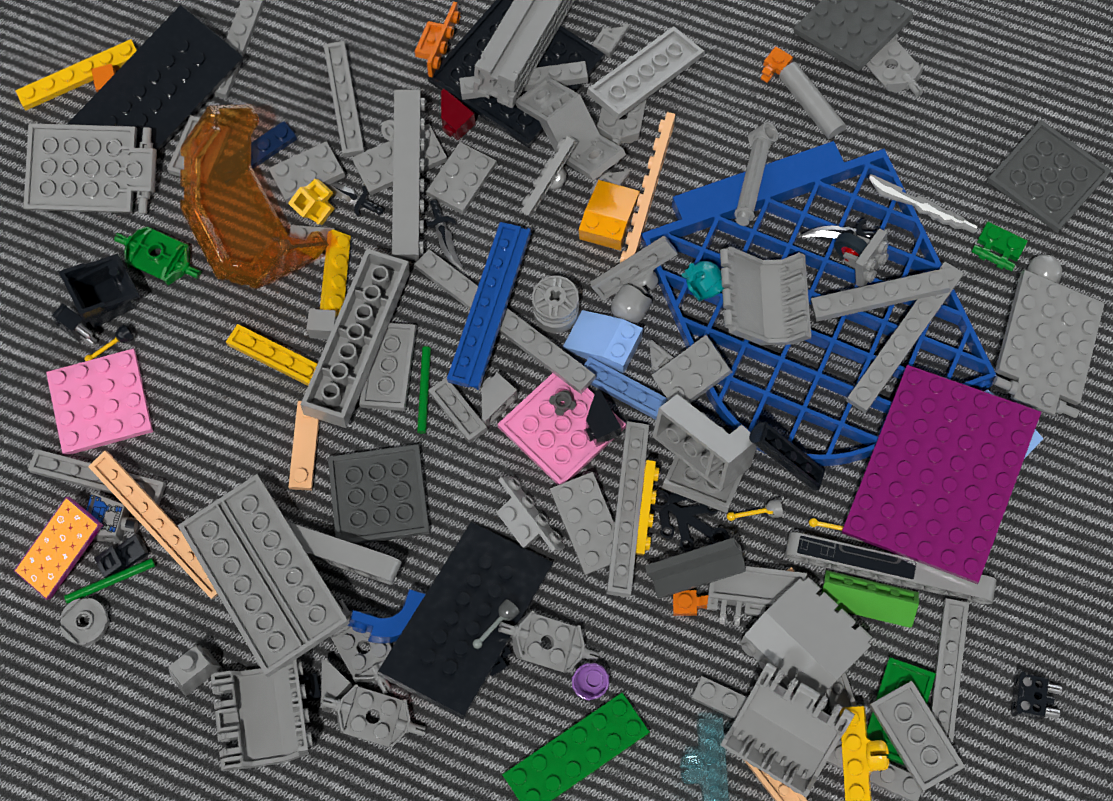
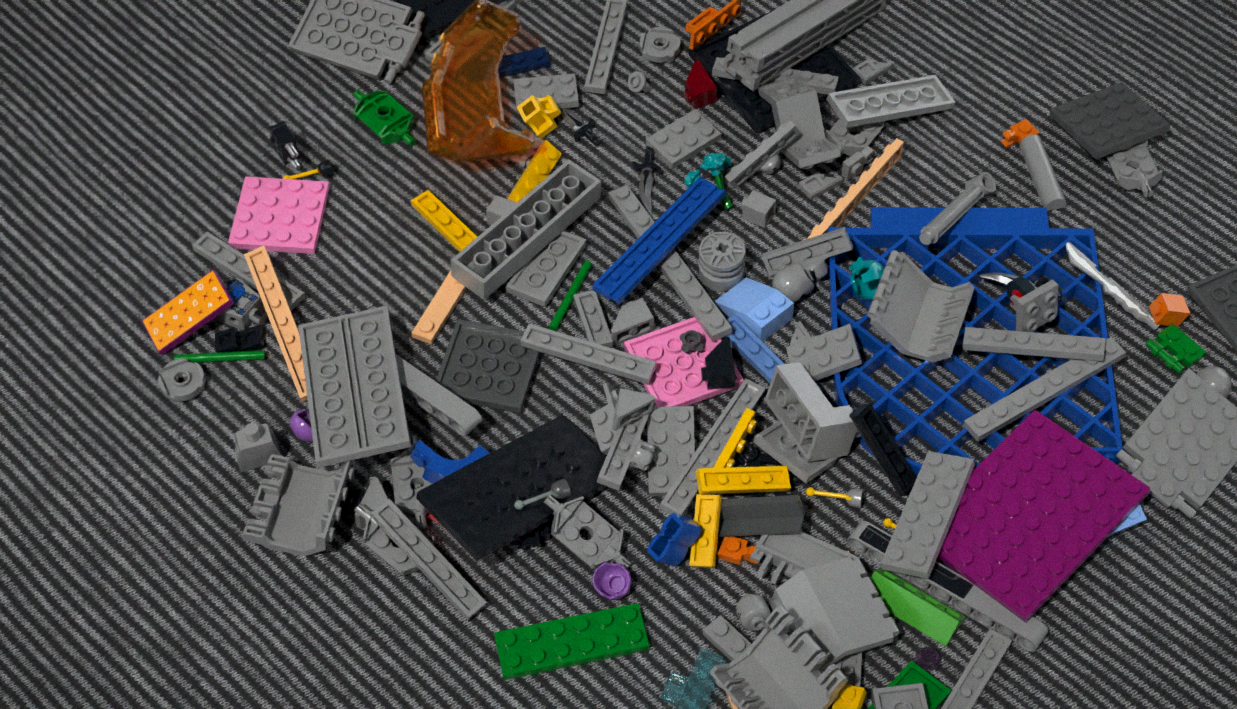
camera: 20 degrees right, 15 degrees down
(100, 289) = (321, 123): black piece -> none
(226, 628) = (301, 425): none -> medium lavender hair
(377, 163) = (633, 107): light grey plate -> none
(386, 76) = (659, 54): none -> light grey plate
(406, 175) = (633, 116): light grey brick -> none
(411, 727) = (428, 559): none -> light grey plate
(470, 451) = (588, 353): none -> light grey plate
(507, 203) = (717, 164): none -> teal plant
(537, 501) = (630, 407): none -> light grey slope
(551, 544) = (625, 452): none -> light grey plate
(564, 232) = (758, 208): none -> light grey brick
(608, 215) = (803, 207): light orange slope -> none
(632, 620) = (674, 539): none -> blue brick
(637, 153) = (854, 164): none -> light grey plate
(655, 597) = (707, 517): none -> yellow tile
(670, 534) = (743, 479): none -> yellow plate
(730, 662) = (752, 612): none -> light grey head
(853, 509) = (927, 514): none -> light grey plate
(901, 642) = (931, 654): none -> clear purple plate
(981, 210) = (1169, 309): none -> orange brick

